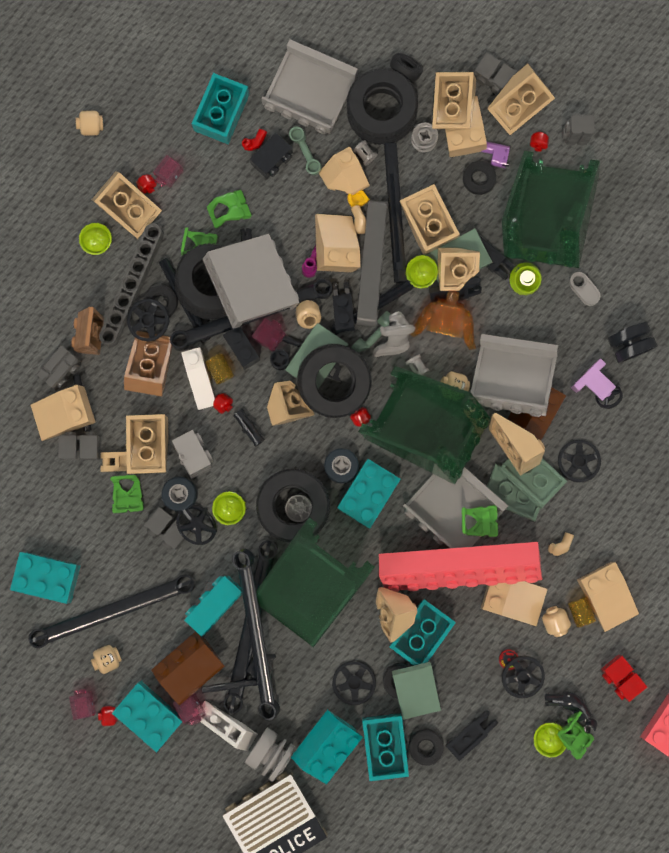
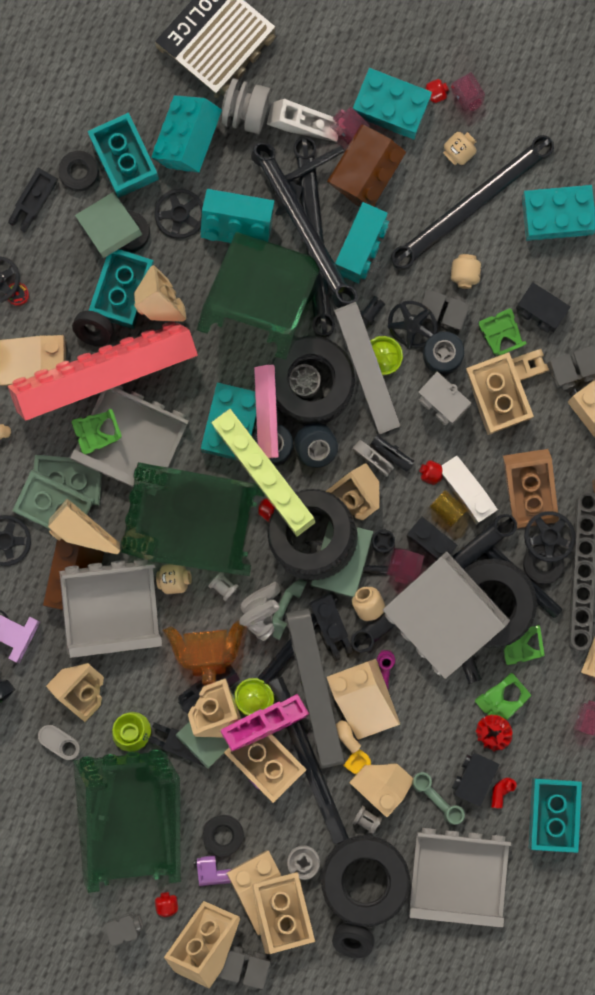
camera: 155 degrees right, 0 degrees up
(87, 503) = (542, 308): none -> black brick
(137, 555) = (466, 271): none -> tan head
(231, 544) = (371, 311): none -> black pin
(240, 190) = (495, 723): none -> red gear
(245, 499) = (367, 367): none -> light grey tile
(265, 428) = (373, 457): none -> light grey piece
(307, 452) = (319, 453): none -> black wheel
(312, 664) = (231, 213): none -> teal brick
(338, 489) = (266, 410): none -> bright pink tile
(357, 438) = (263, 472): none -> yellowish green brick
(421, 244) = (264, 722): none -> dark pink slope
(461, 612) = (97, 320): none -> black tyre
(558, 322) = (78, 689): none -> tan slope

